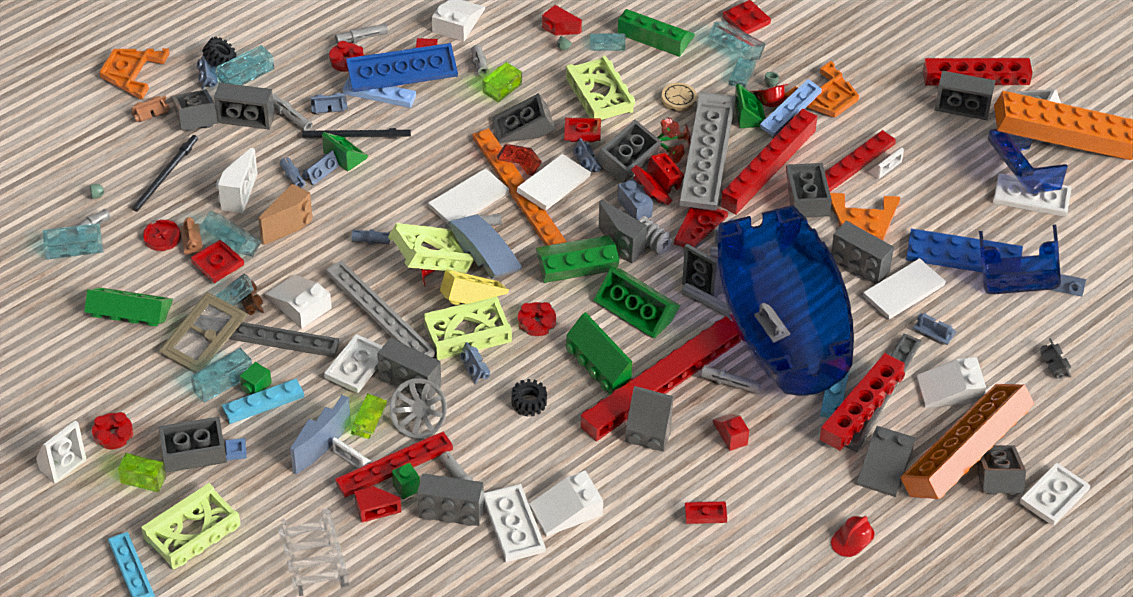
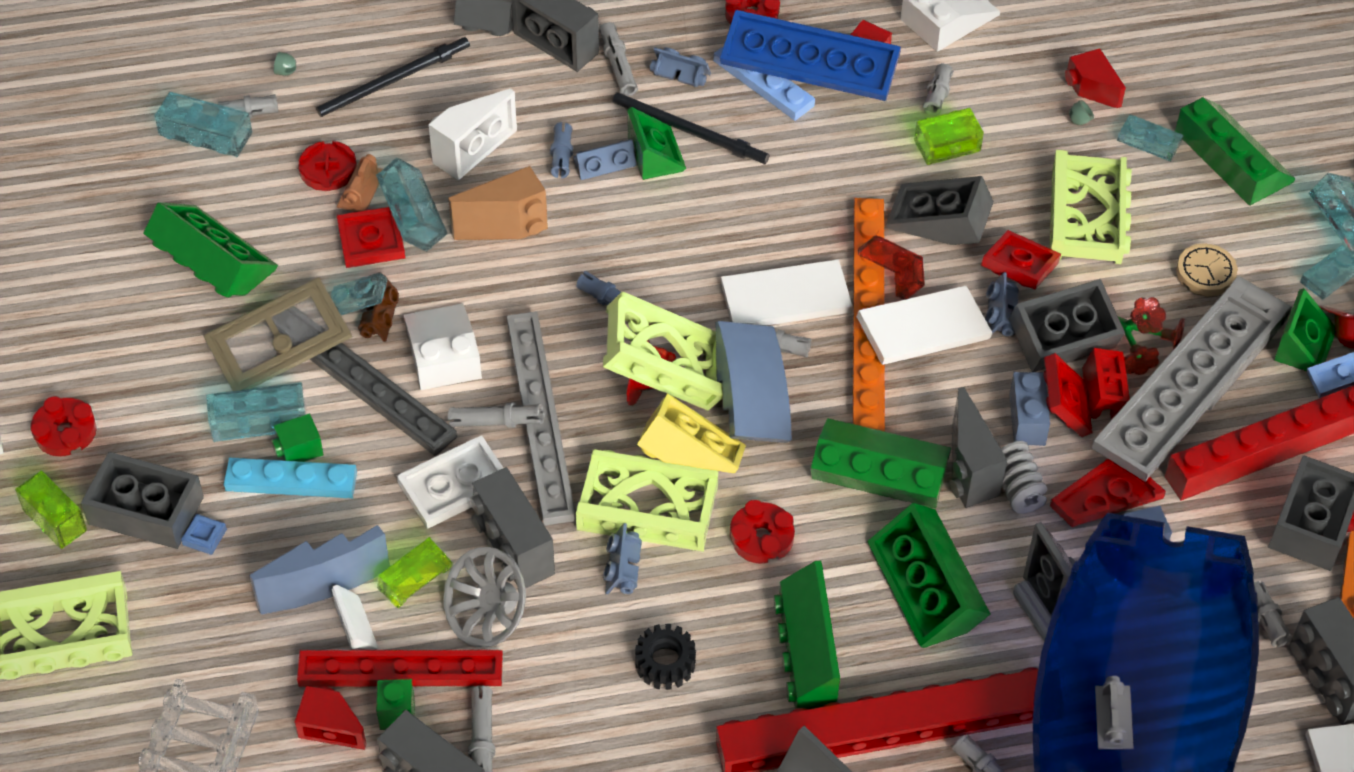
camera: 30 degrees right, 5 degrees up
(357, 320) = (496, 415): none -> light grey pin

